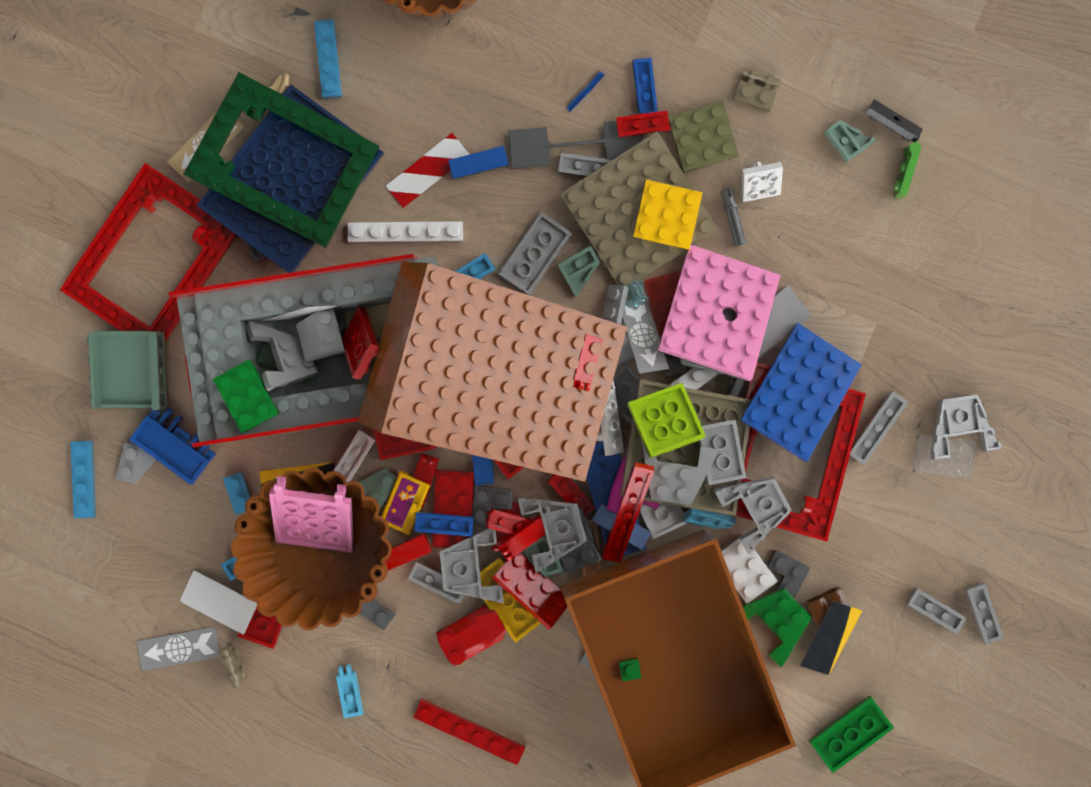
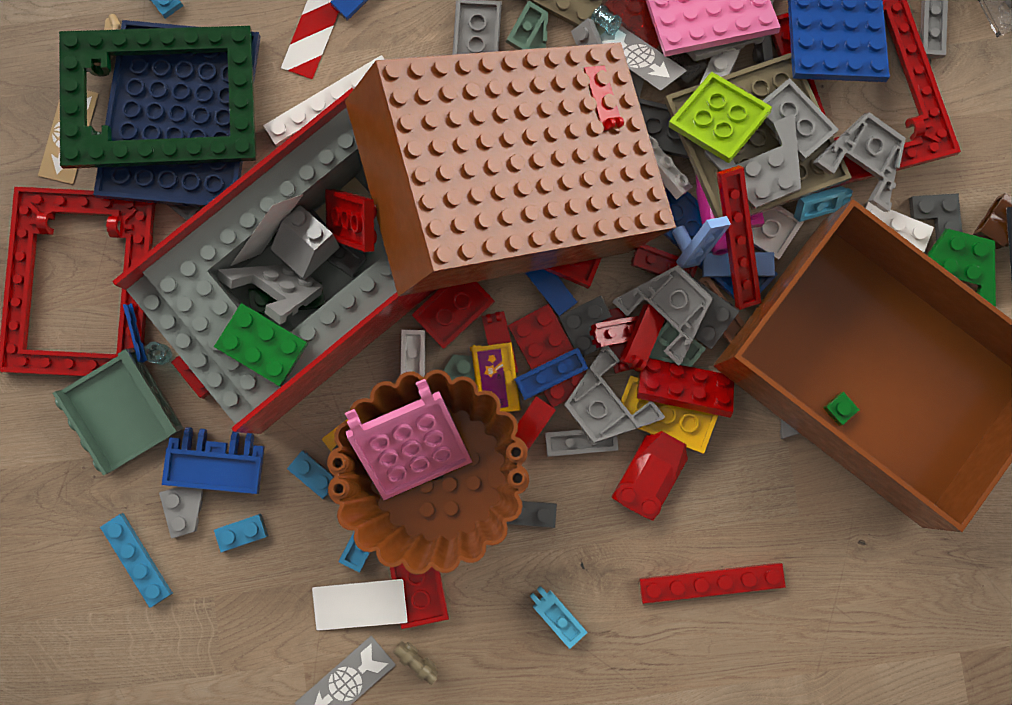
camera: 30 degrees left, 5 degrees down
(165, 503) = (240, 533): none -> dark azure plate
(171, 317) = (138, 346): none -> blue piece
(173, 345) = (158, 359): none -> clear light blue bush
(599, 500) = (697, 249): none -> light blue piece

